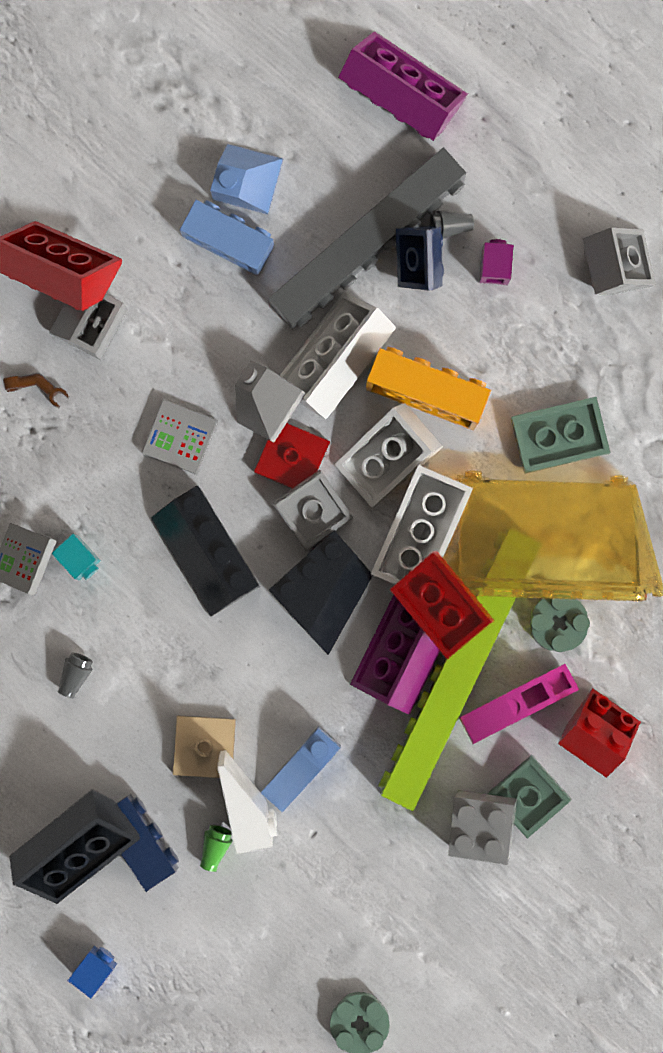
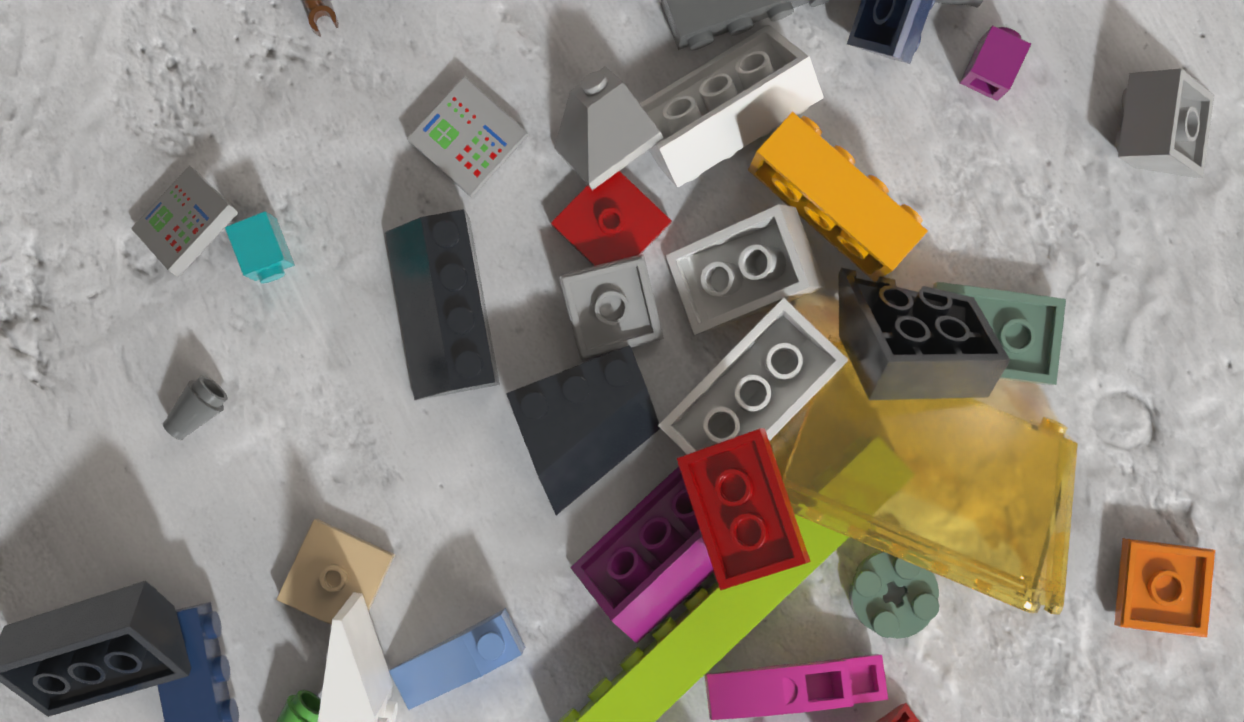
camera: 15 degrees right, 0 degrees up
(511, 459) = (917, 341): none -> black wedge

